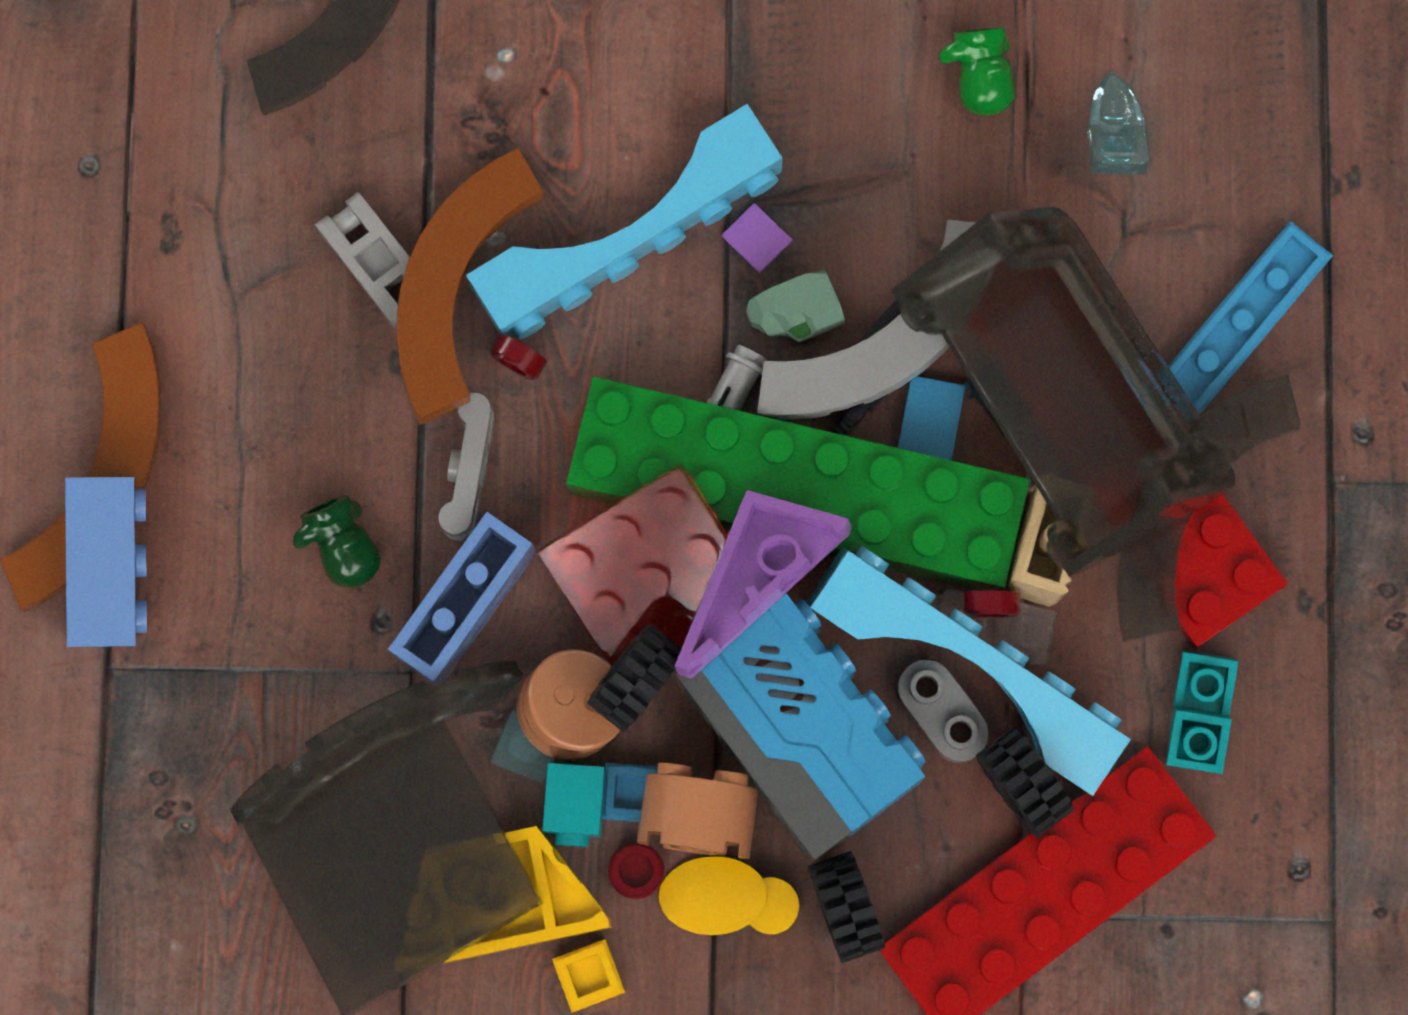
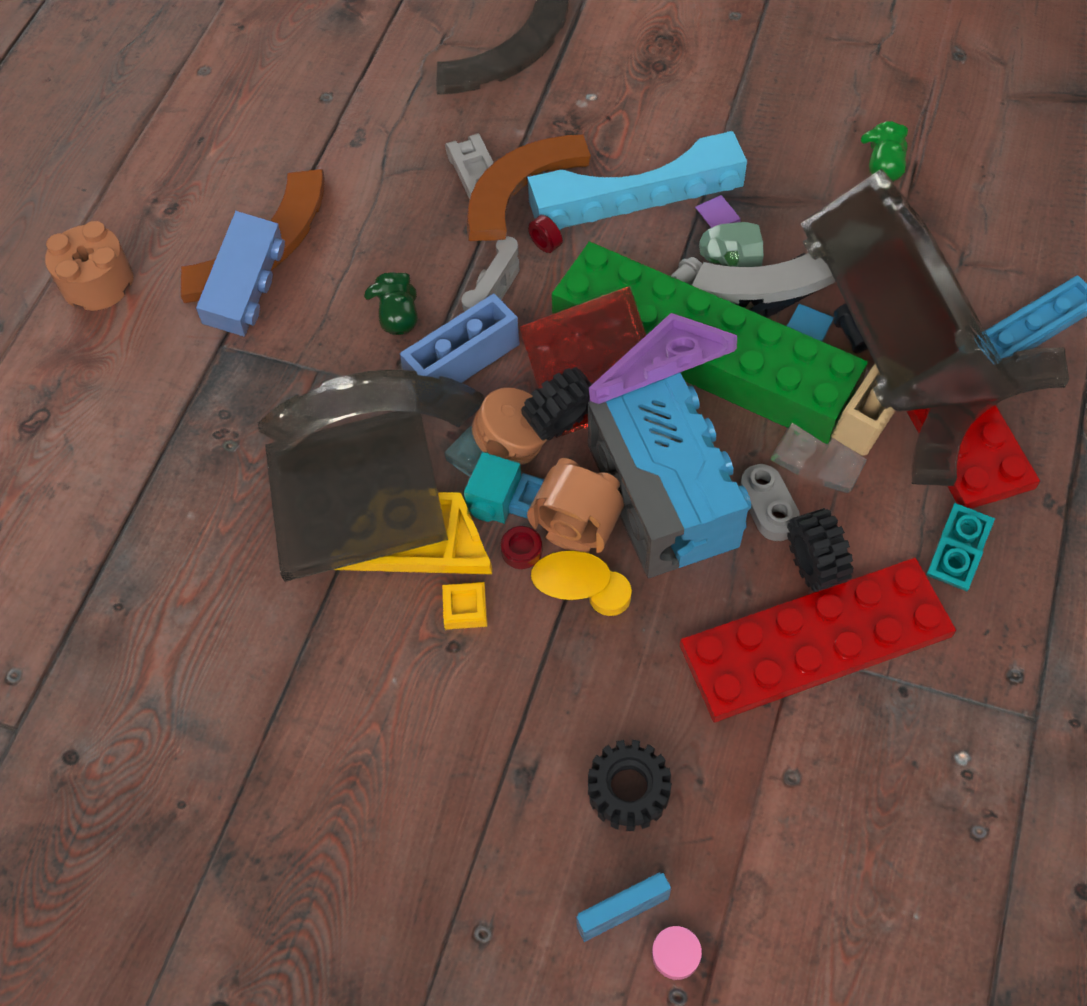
camera: 15 degrees right, 20 degrees down
(846, 906) = (665, 597): black tyre -> none
(871, 605) = (741, 404): medium azure arch -> none
(991, 604) = (823, 431): dark red tile -> none
(1116, 130) = (967, 205): clear light blue plate -> none

